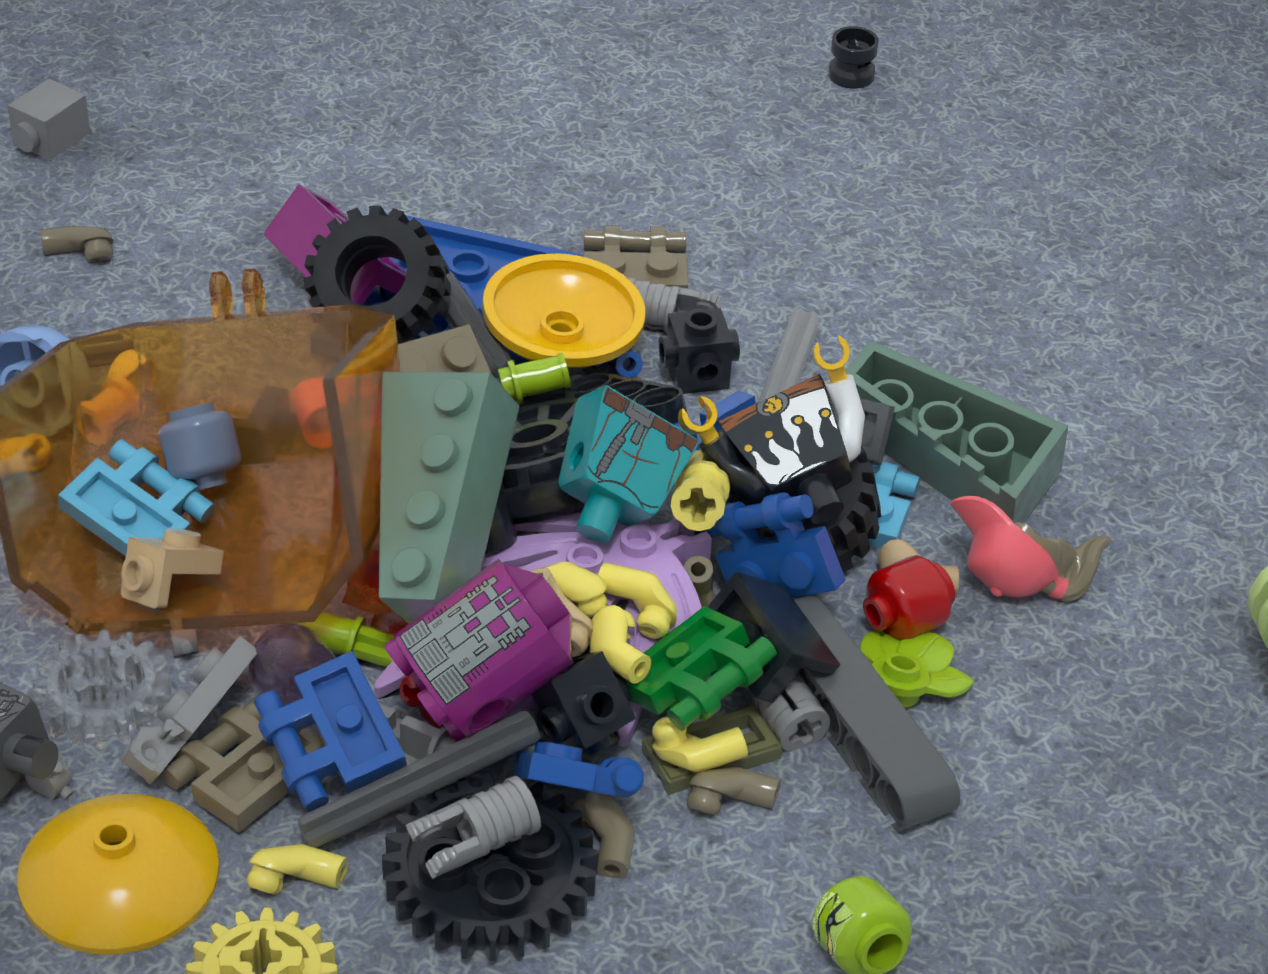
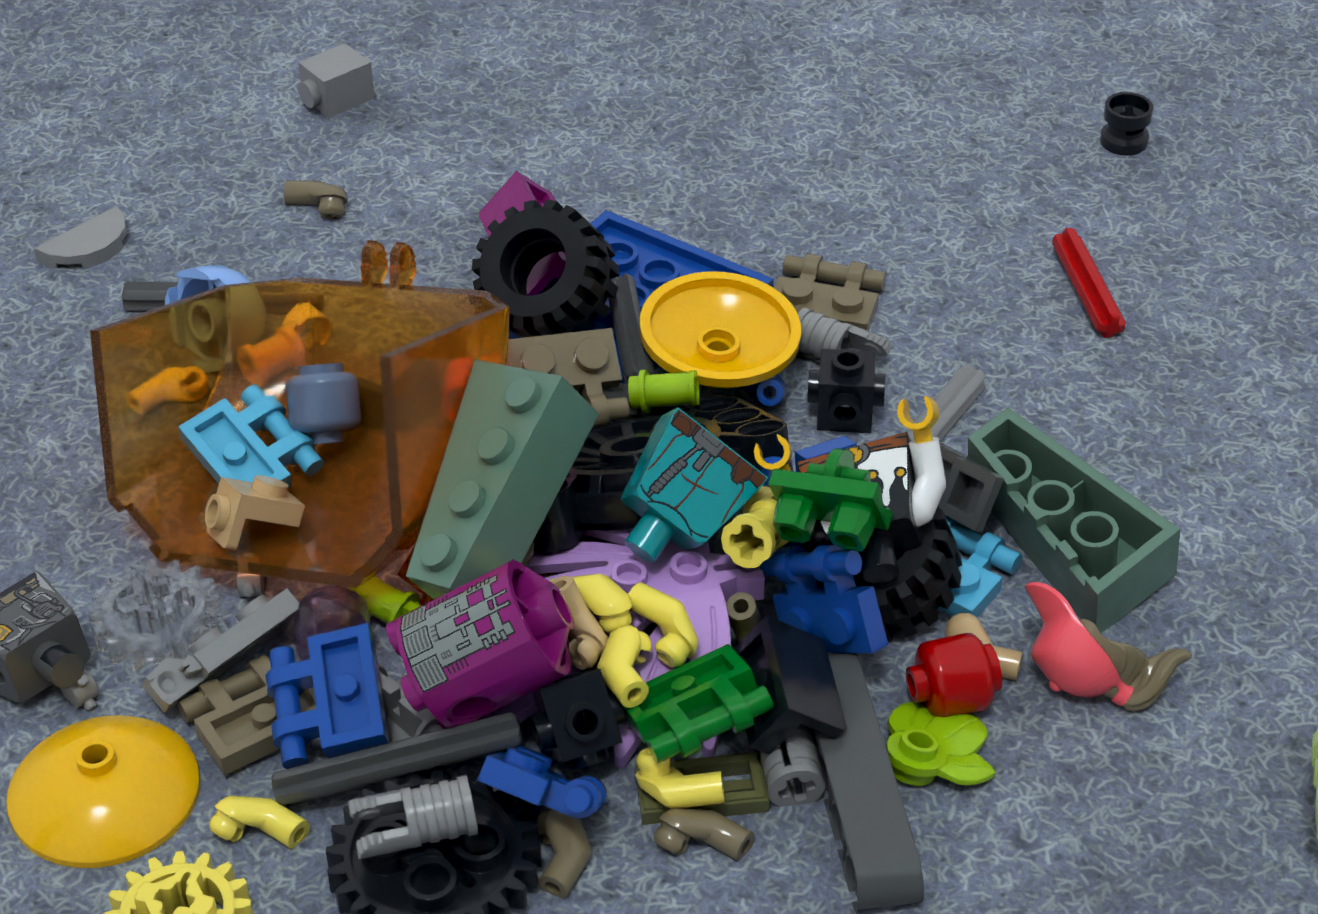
camera: 20 degrees right, 0 degrees up
(772, 445) = (830, 494): none -> green hips
(876, 213) = (1088, 283): none -> red axle

